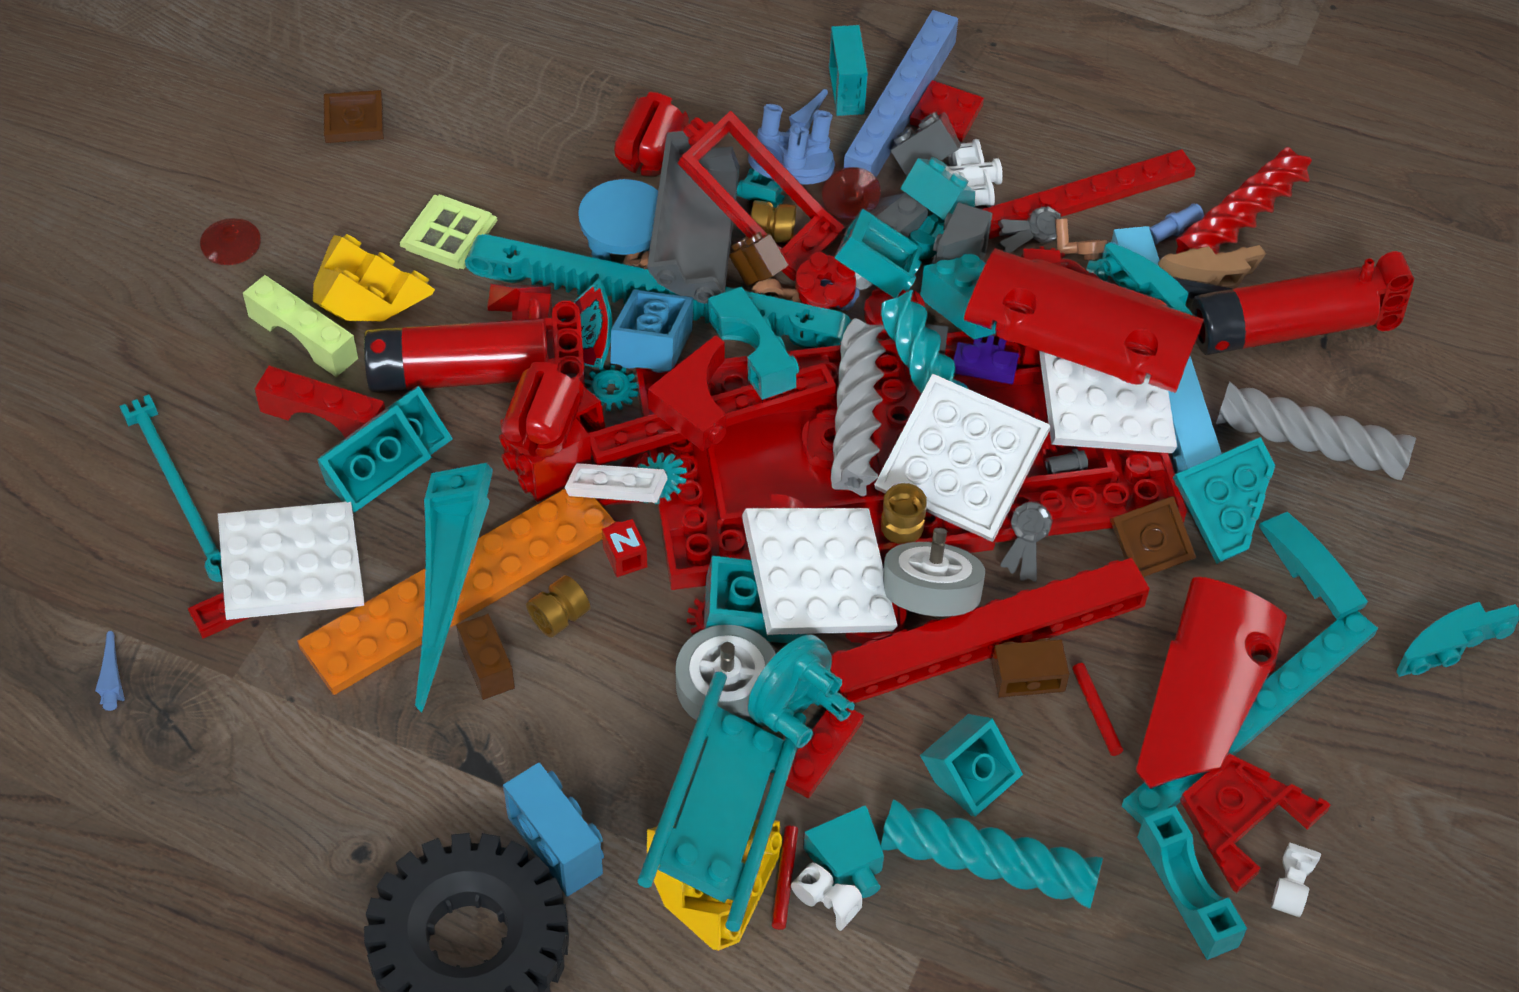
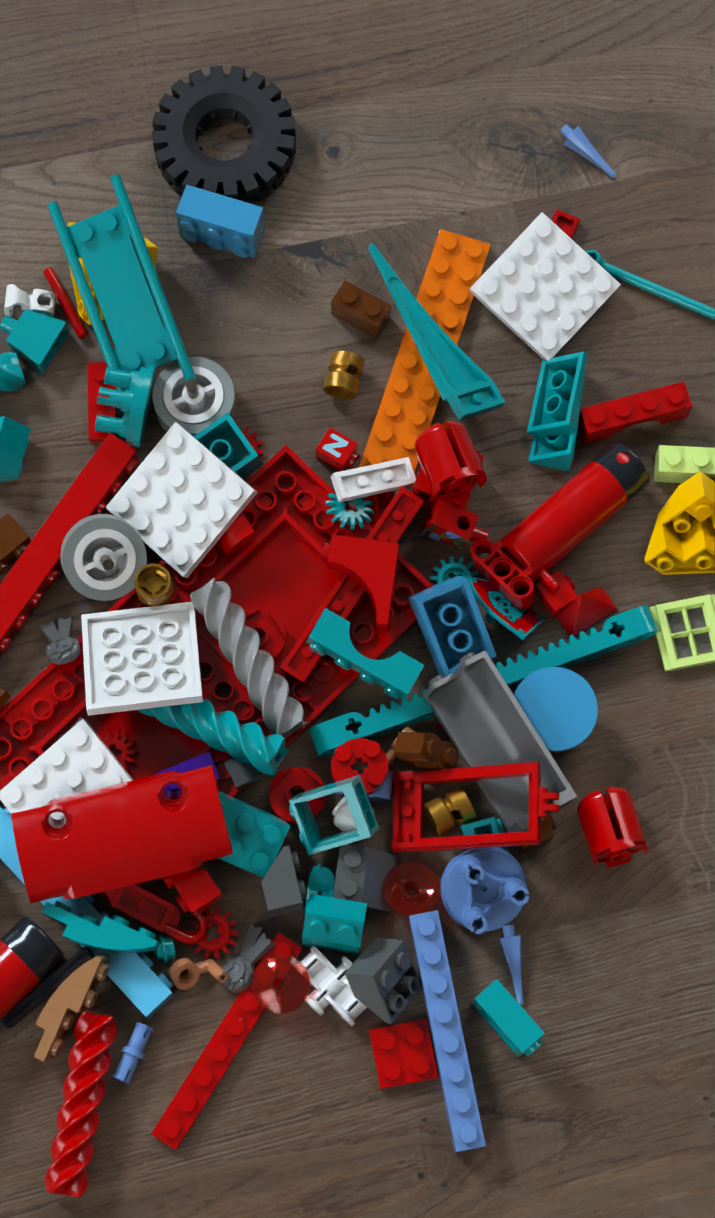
camera: 145 degrees right, 20 degrees up
(1014, 189) = (295, 986): none -> clear red dish

